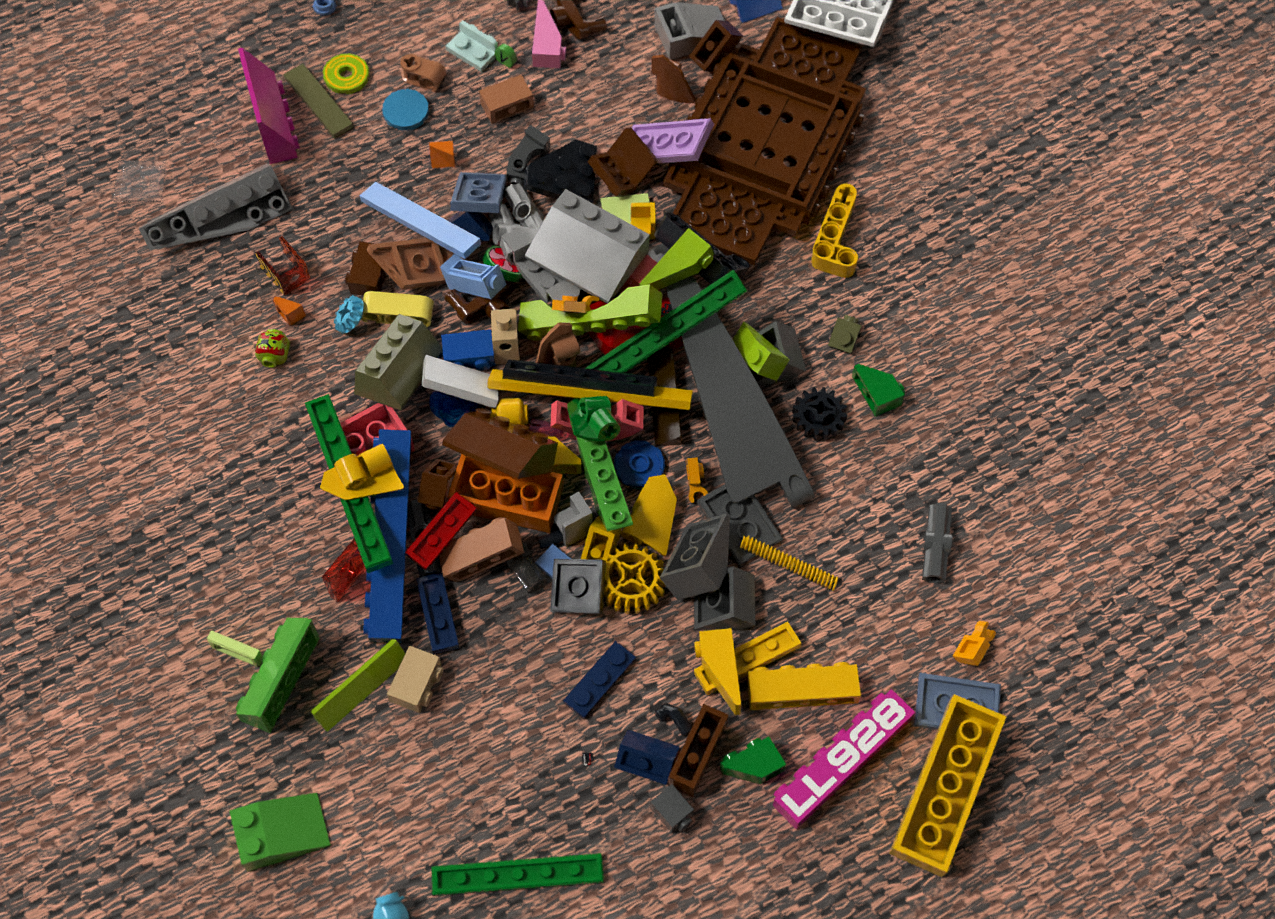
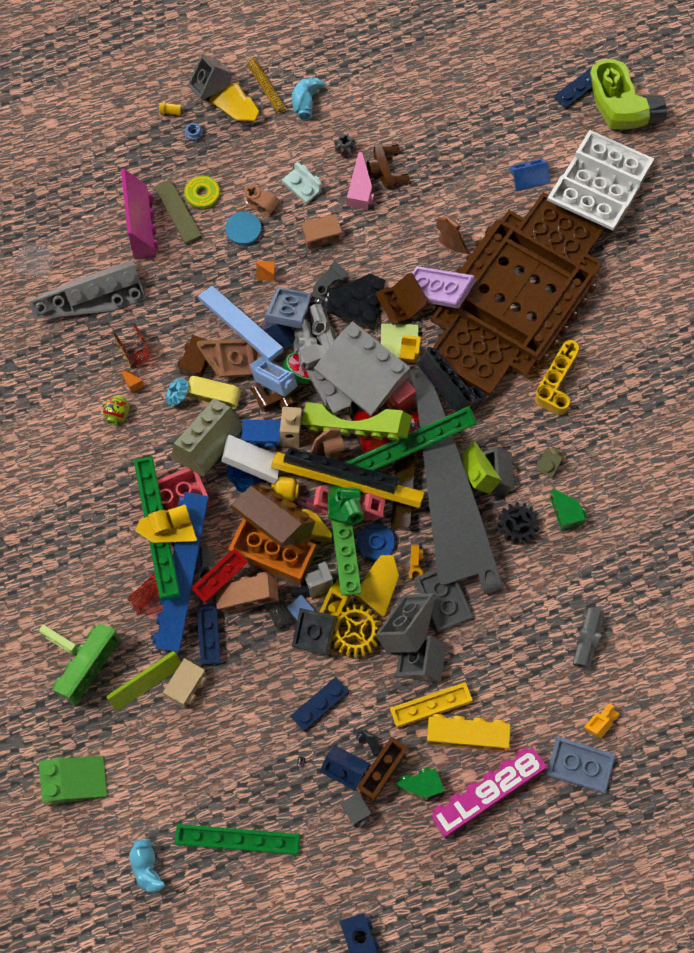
camera: 10 degrees right, 5 degrees up
(436, 483) = (222, 536): reddish brown brick -> none
(505, 55) = (326, 194): bright green tile -> none
(570, 304) = (343, 414): light orange plate -> none
(681, 261) = (432, 389): lime slope -> none
(683, 26) = (474, 191): light grey slope -> none
(717, 42) = (491, 209): reddish brown brick -> none
(719, 663) = (408, 706): yellow slope -> none
(769, 551) = (488, 644): yellow piece -> none
(947, 785) = (560, 825): yellow brick -> none

